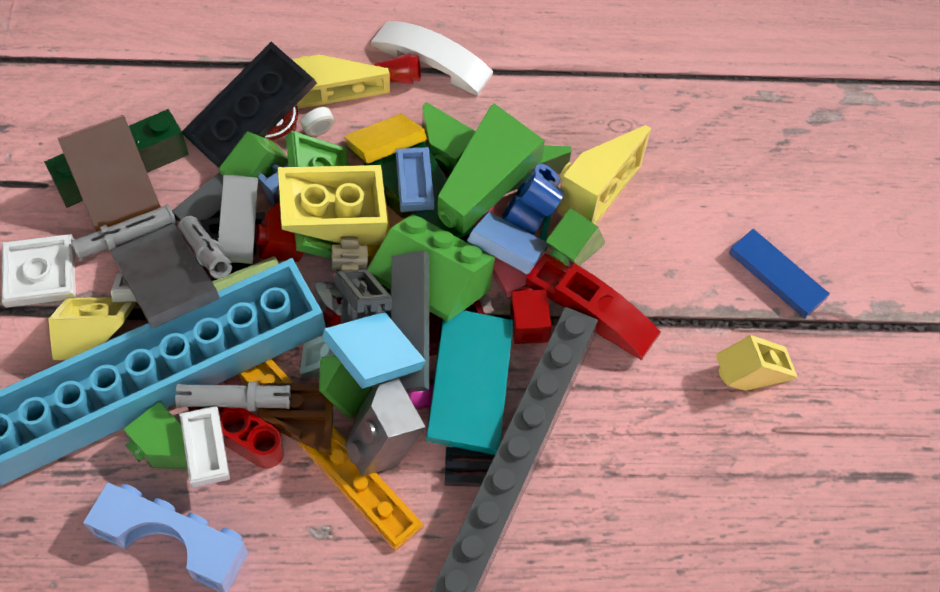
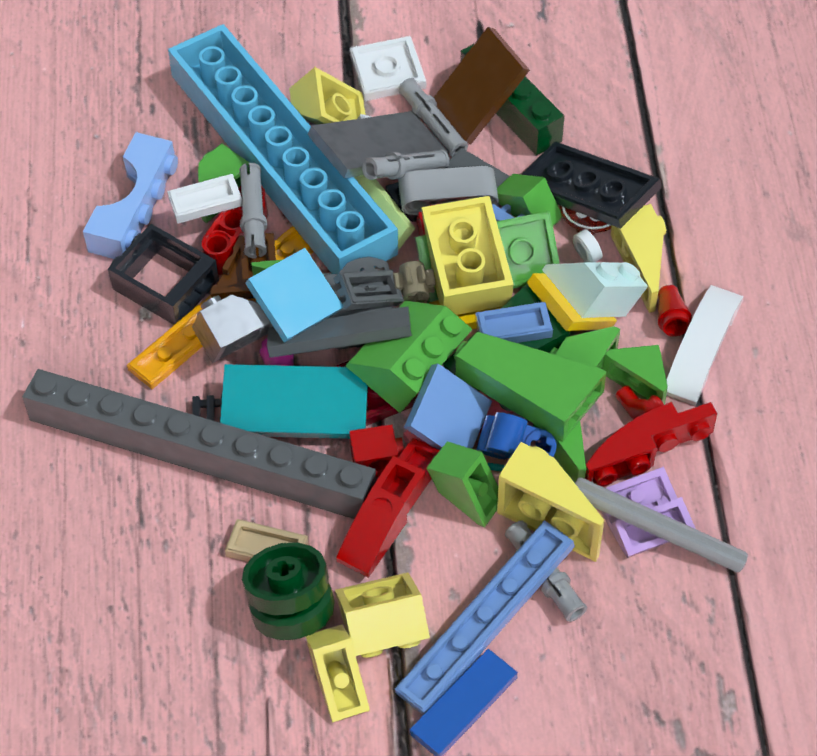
camera: 90 degrees right, 5 degrees down
(311, 474) = (189, 290): none -> black window
(372, 112) = (598, 287): none -> light aqua slope
(469, 96) = (639, 369): none -> bright green slope
(503, 100) = (634, 405): none -> red arm
(532, 107) = (636, 443): none -> red slope
(597, 118) = (654, 492): none -> lavender slope
(619, 422) = (251, 538): none -> tan tile
(625, 102) = (663, 526): none -> light grey axle
(688, 184) = (557, 584): none -> light grey pin
(693, 371) = (288, 591): none -> dark green wheel
(697, 322) = (383, 614): none -> light yellow slope
(706, 244) = (484, 617): none -> medium blue tile

